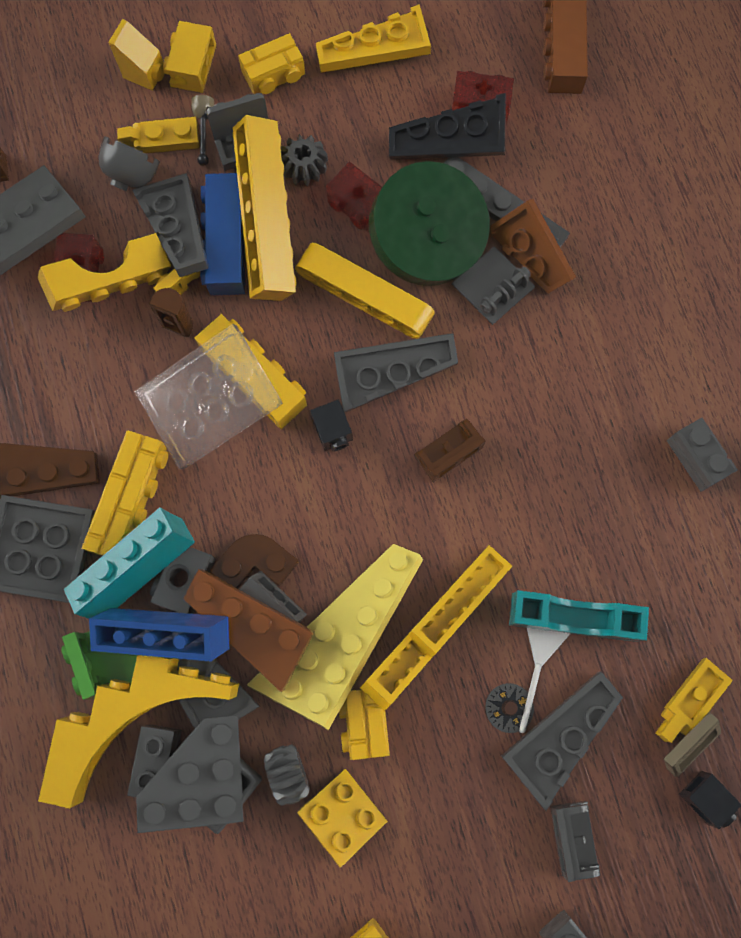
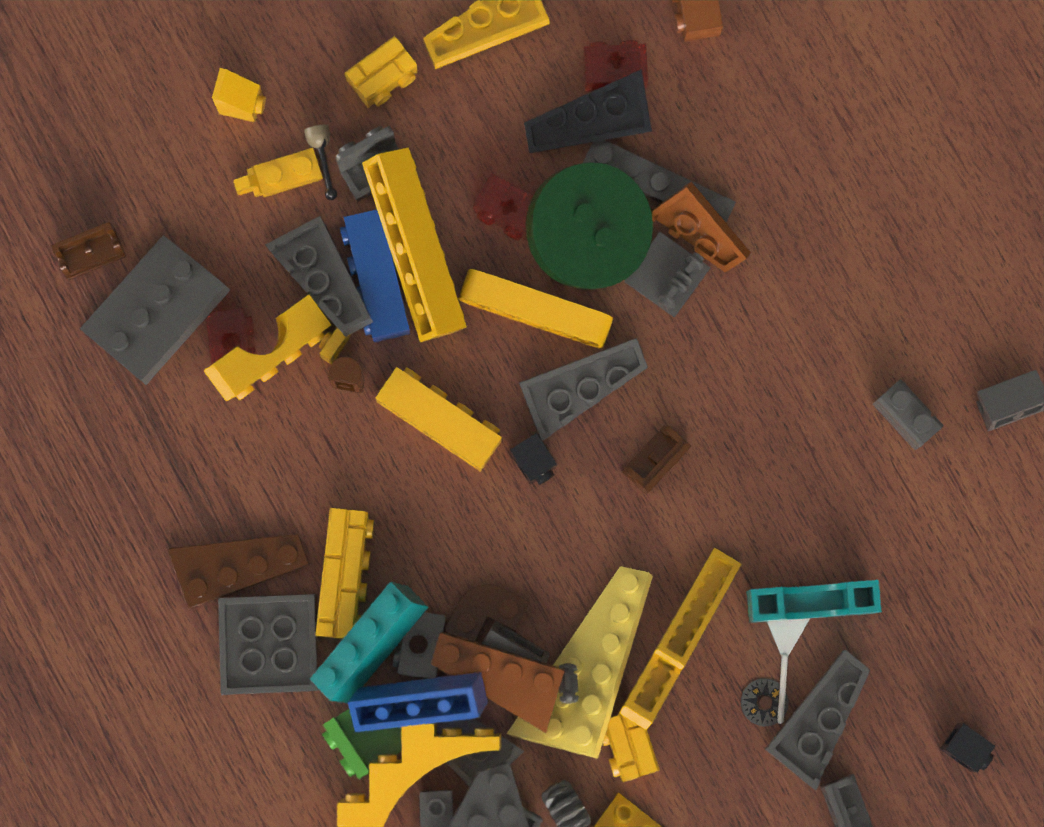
camera: 20 degrees left, 5 degrees up
(125, 165) = (255, 220): dark grey cylinder -> none
(190, 56) = (290, 79): yellow brick -> none
(208, 397) = (403, 456): clear plate -> none
(304, 160) = (431, 169): dark grey gear -> none
(316, 648) = (569, 684): none -> dark grey piece
(693, 700) = (938, 658): yellow hinge -> none
(693, 745) = (943, 700): dark tan tile -> none

